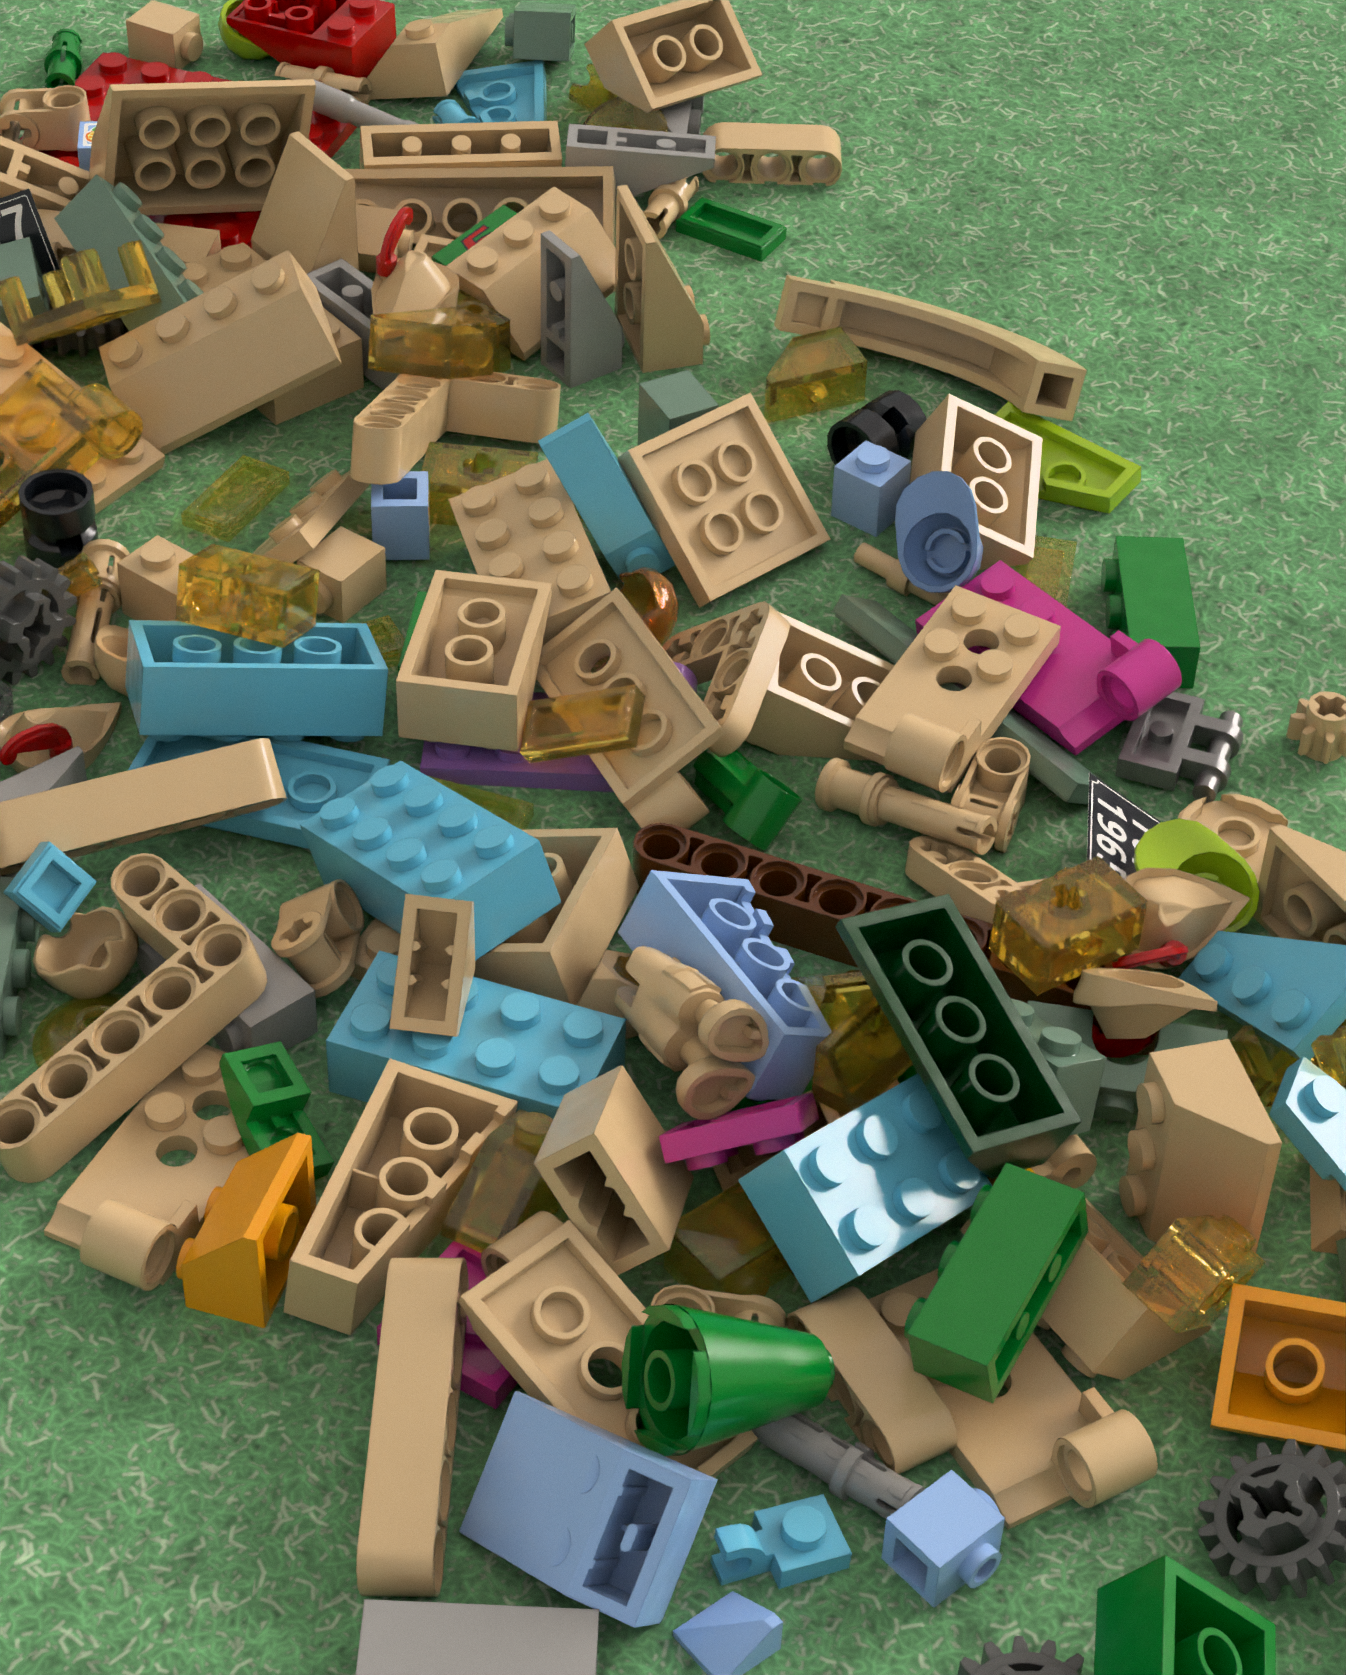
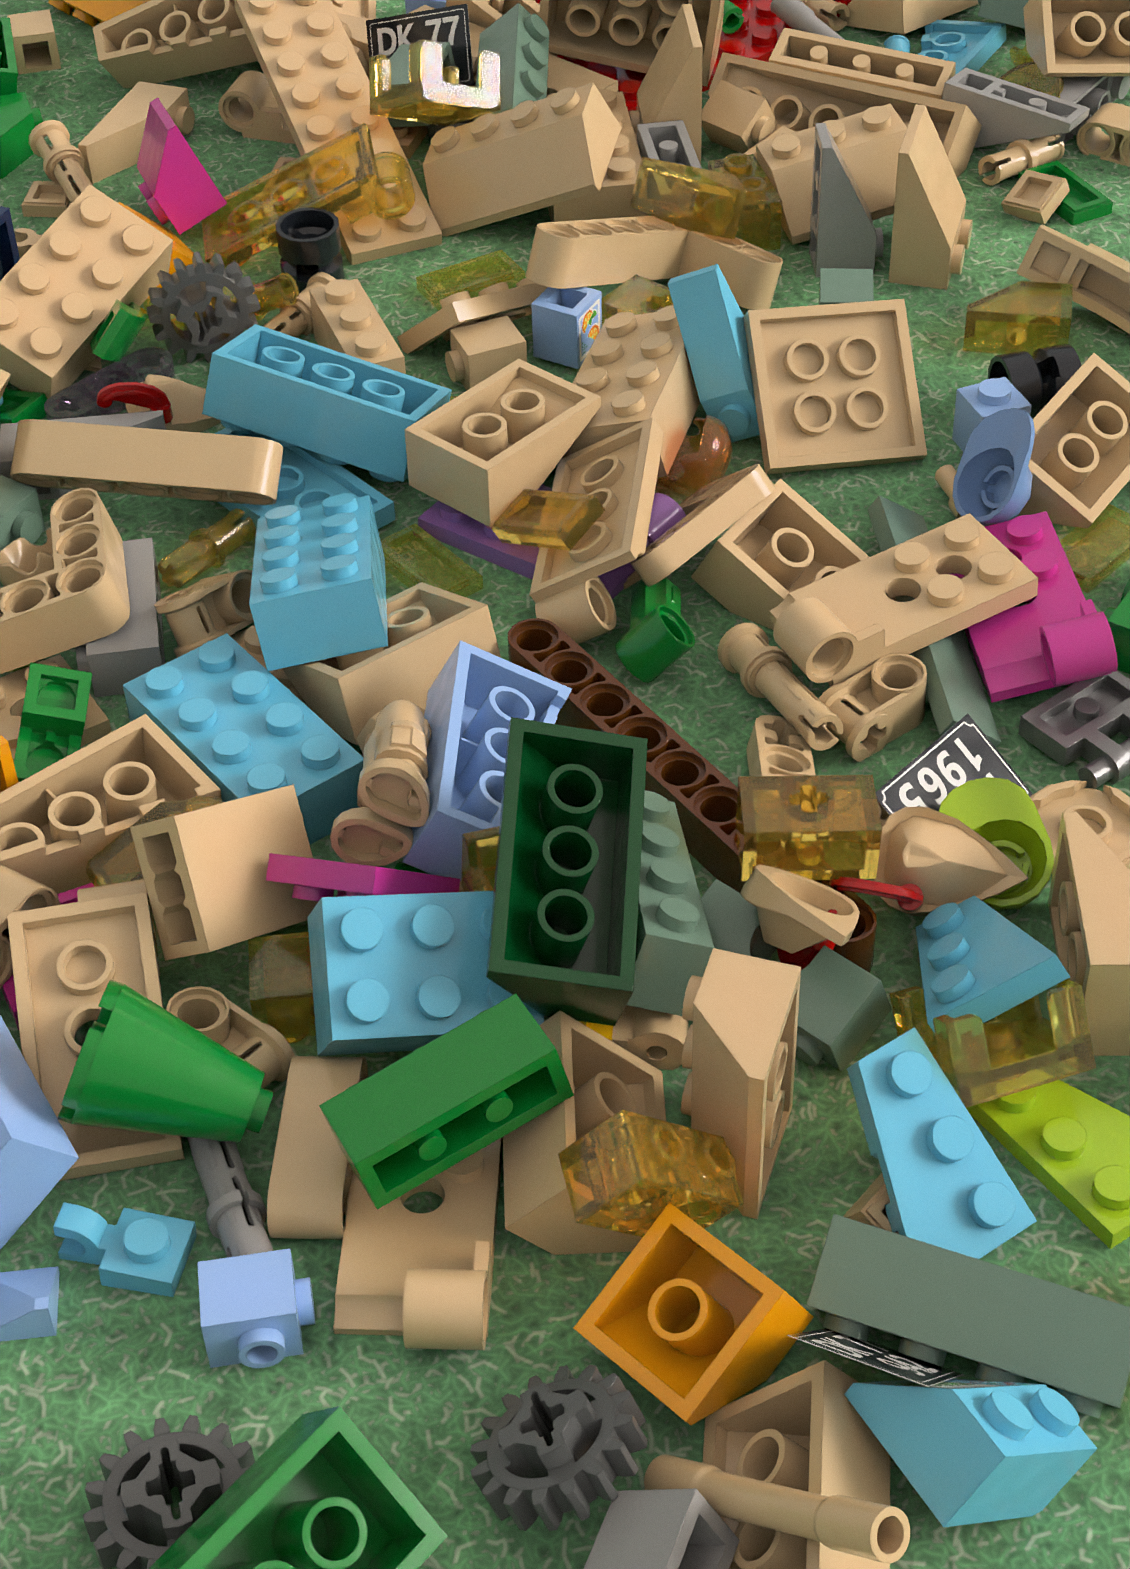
camera: 35 degrees right, 0 degrees up
(50, 886) = (33, 498): medium azure tile -> none
(238, 870) = (206, 548): none -> clear yellow axle
(247, 595) = (353, 331): clear yellow brick -> none
(410, 281) = (710, 142): tan piece -> none
(434, 965) = (225, 652): tan slope -> none
(715, 241) = (1035, 196): none -> tan tile

